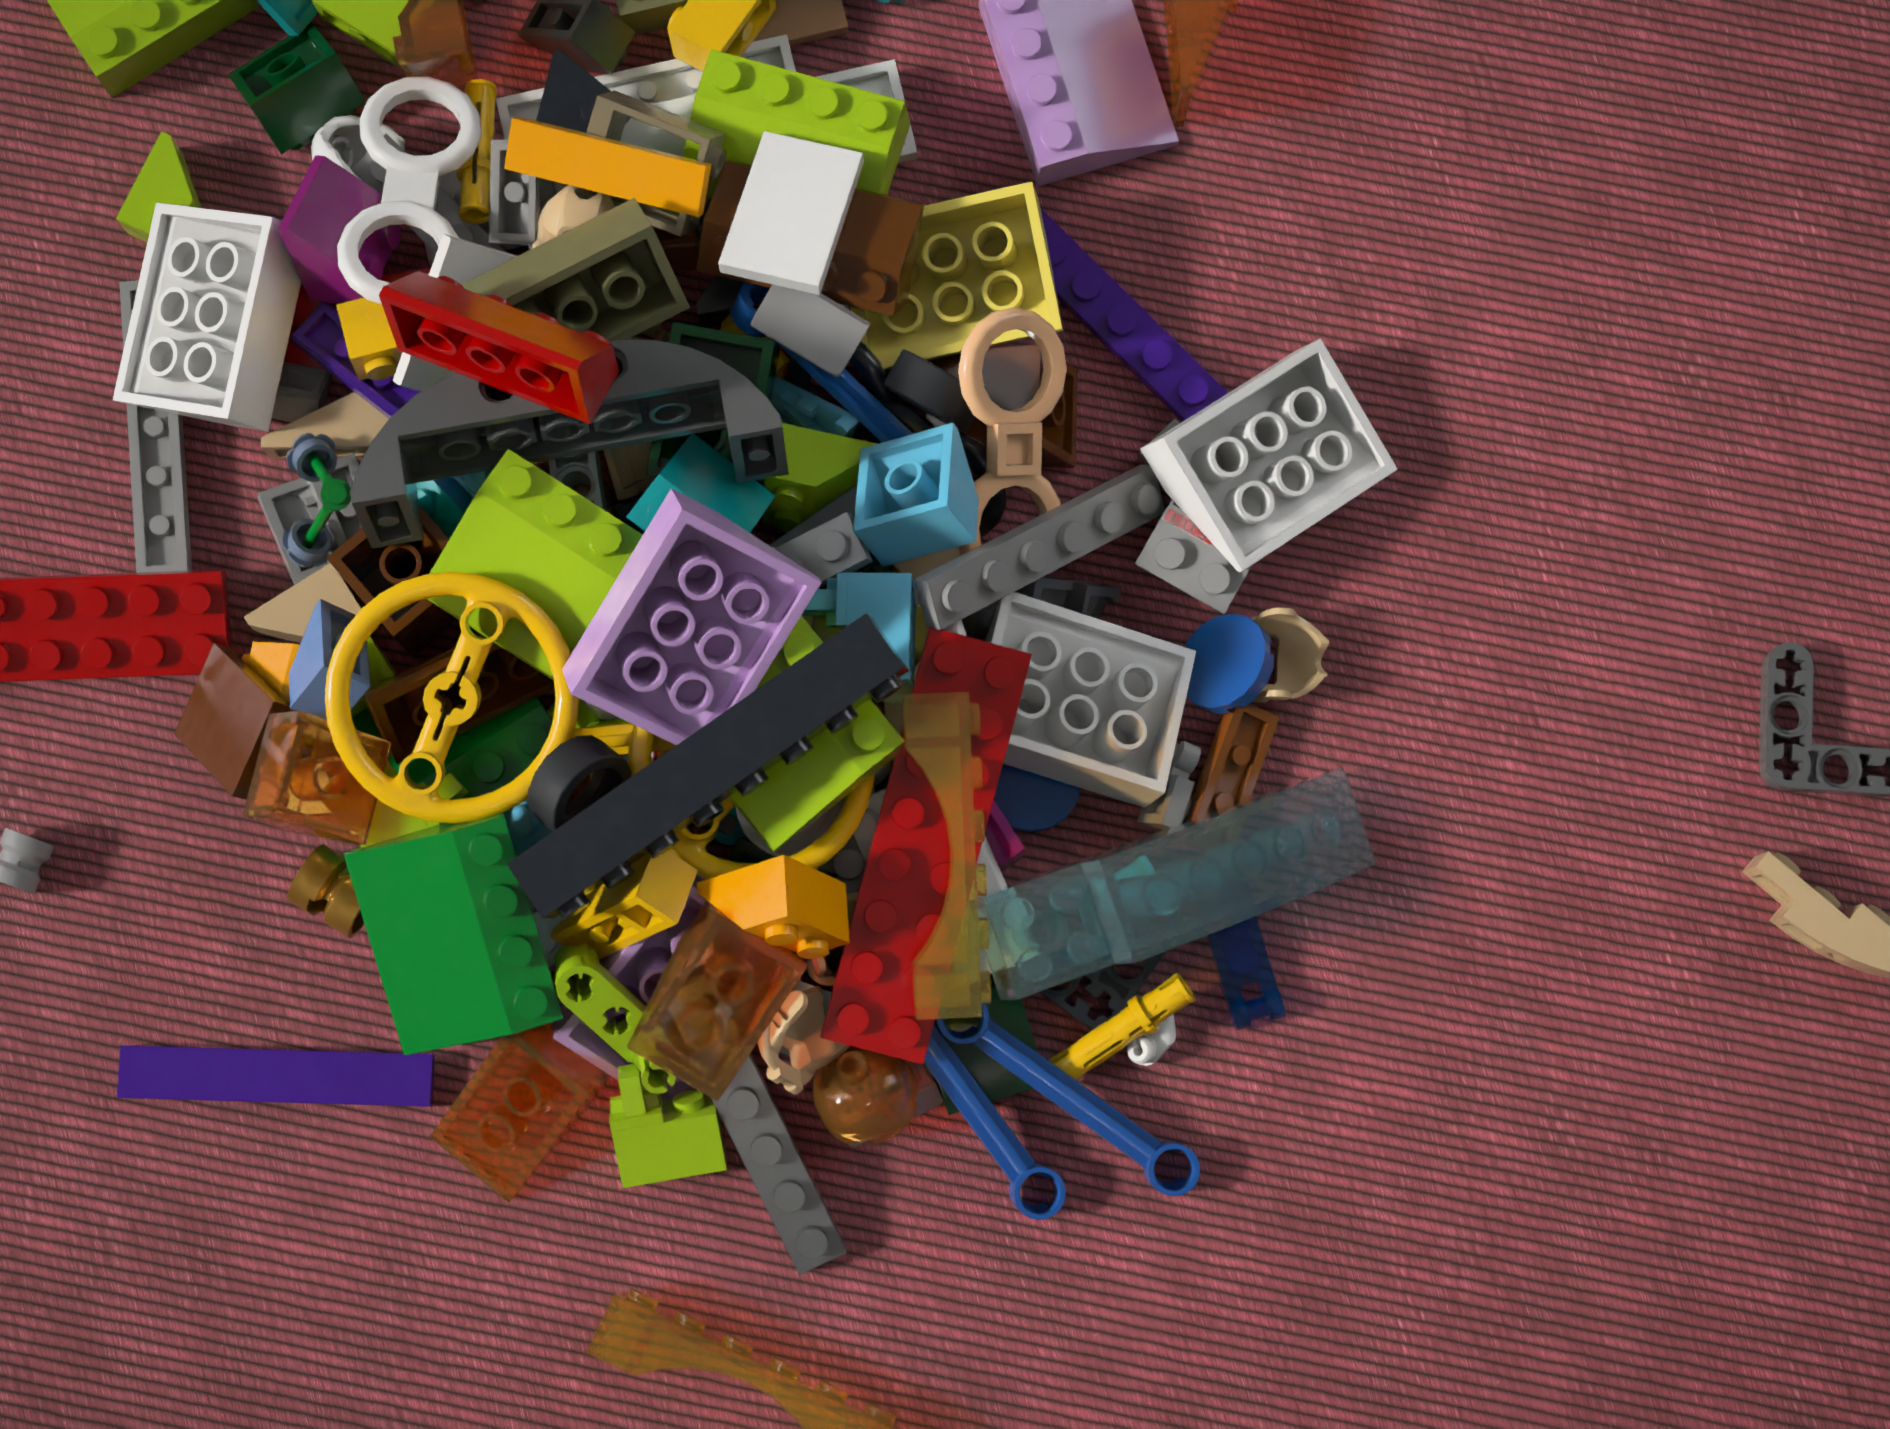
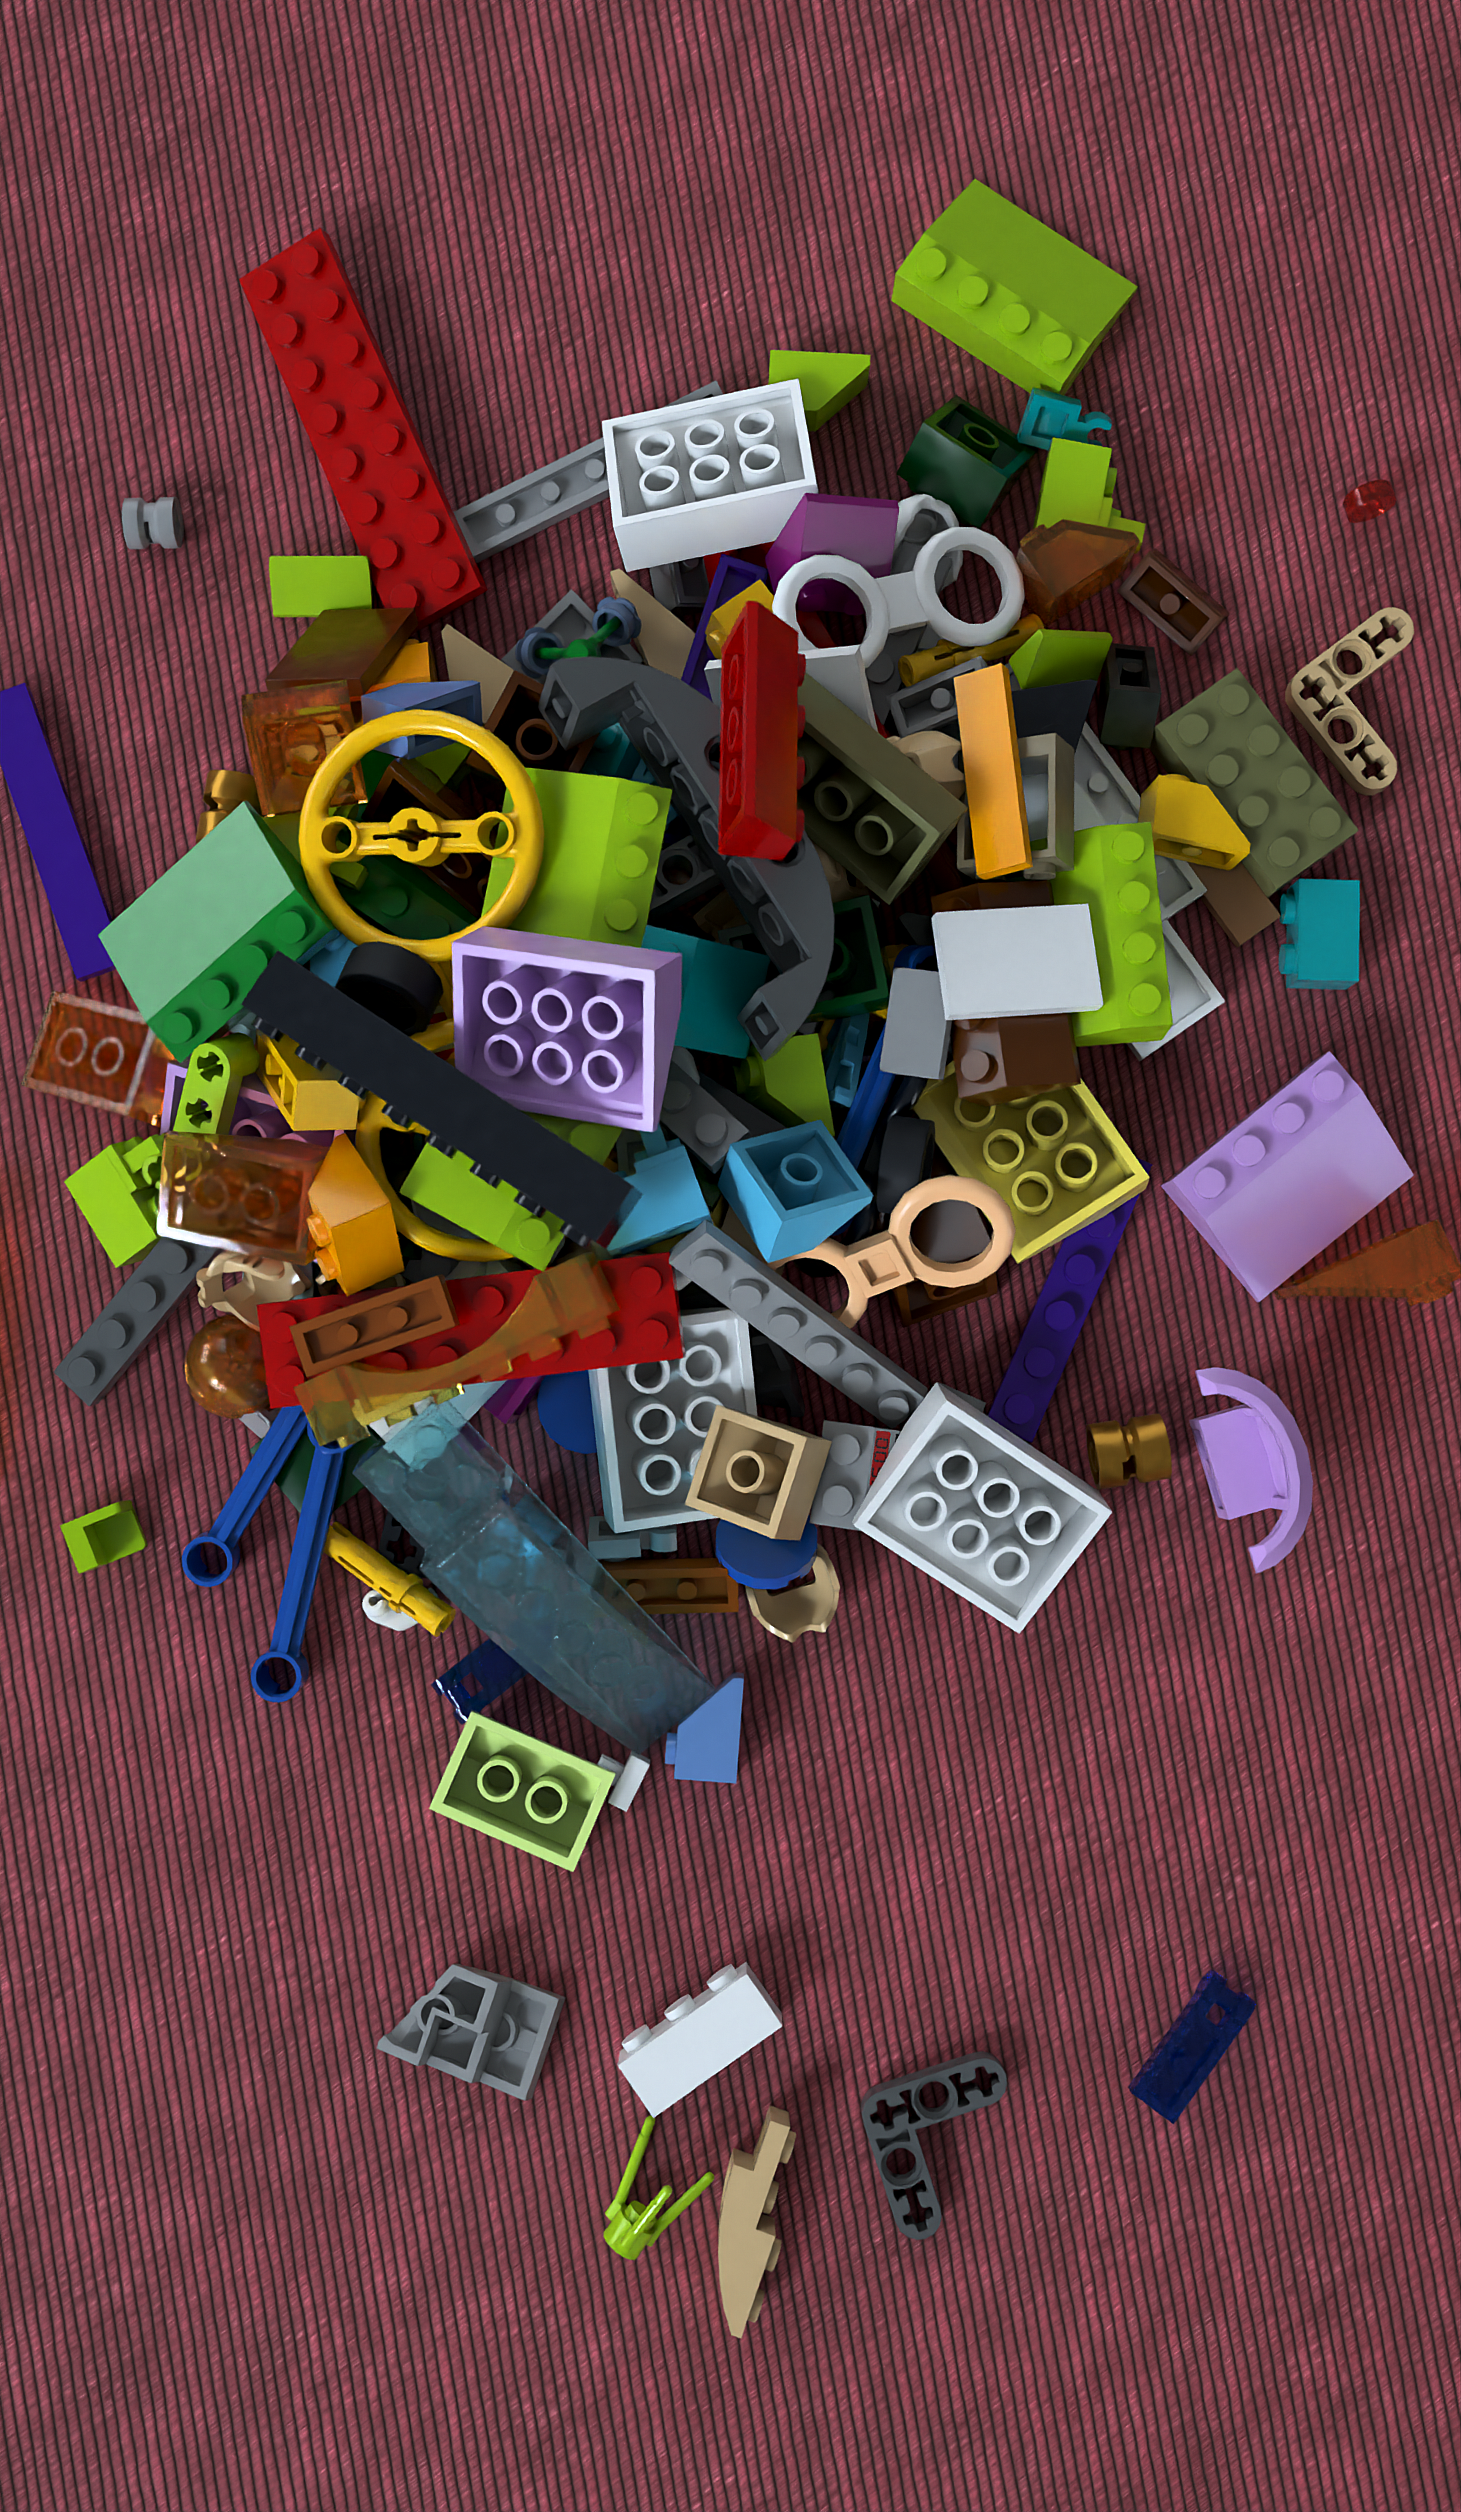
camera: 70 degrees right, 5 degrees up
(147, 728) = (318, 583): none -> lime slope
(520, 75) = (1060, 657): none -> lime slope
(888, 925) = (374, 1325): none -> dark orange plate
(976, 1285) = (104, 1536): none -> lime panel
(1161, 639) = (758, 1473): none -> tan slope
(1268, 315) = (1128, 1451): none -> pearl gold wheel
(1322, 196) = (1254, 1460): none -> lavender piece
(1368, 974) = (522, 1790): none -> yellowish green slope
(1383, 786) = (709, 1736): none -> medium blue slope
(1393, 880) = (627, 1778): none -> white tile
(1574, 1109) = (480, 2029): none -> light grey slope
(1656, 906) = (698, 2037): none -> white brick
(1807, 1034) = (636, 2224): none -> lime plant
(1827, 468) = (1191, 2047): none -> clear blue plate

